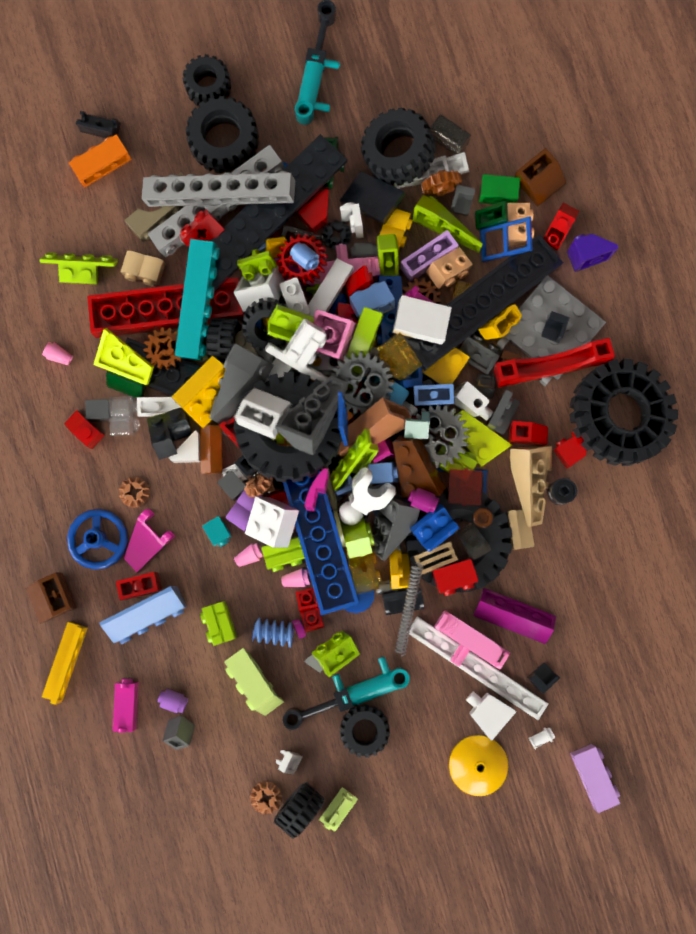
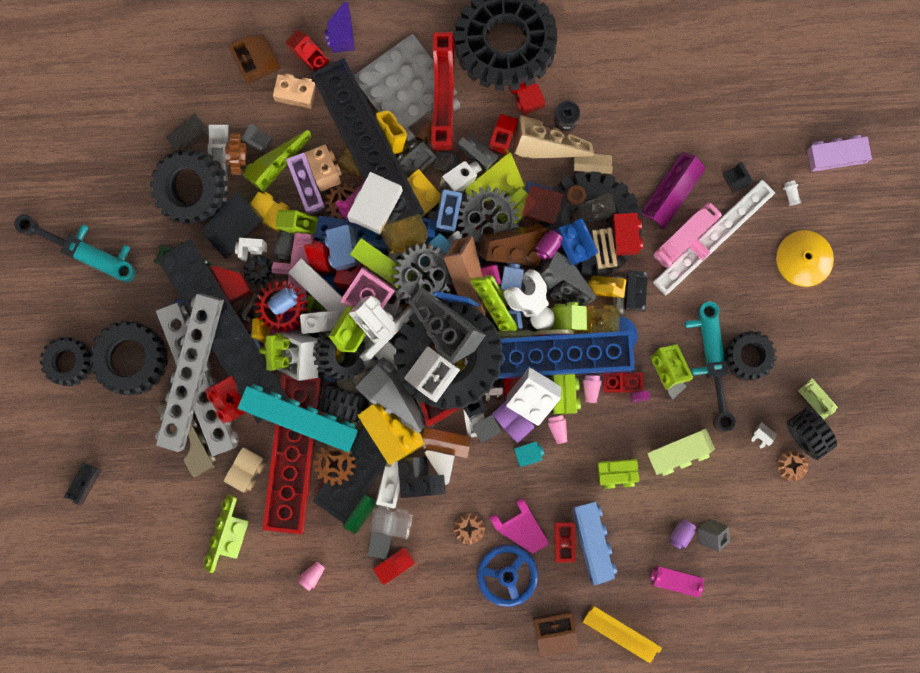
camera: 80 degrees left, 0 degrees up
(99, 160) = (120, 489): orange brick -> none
(121, 359) = (335, 509): neon yellow wing -> none
(257, 485) = (497, 396): nougat gear -> none
(273, 632) = (638, 421): medium blue piece -> none
(318, 486) = (511, 338): dark pink slope -> none
(407, 614) = (647, 286): light grey piece -> none
(417, 428) = (479, 232): panel -> none
(489, 713) = (759, 235): white torso -> none
(491, 215) = (281, 114): dark green slope -> none
(499, 189) = (256, 100): green panel -> none
(506, 240) = (309, 106): blue window -> none
(555, 327) = (407, 81): black panel -> none

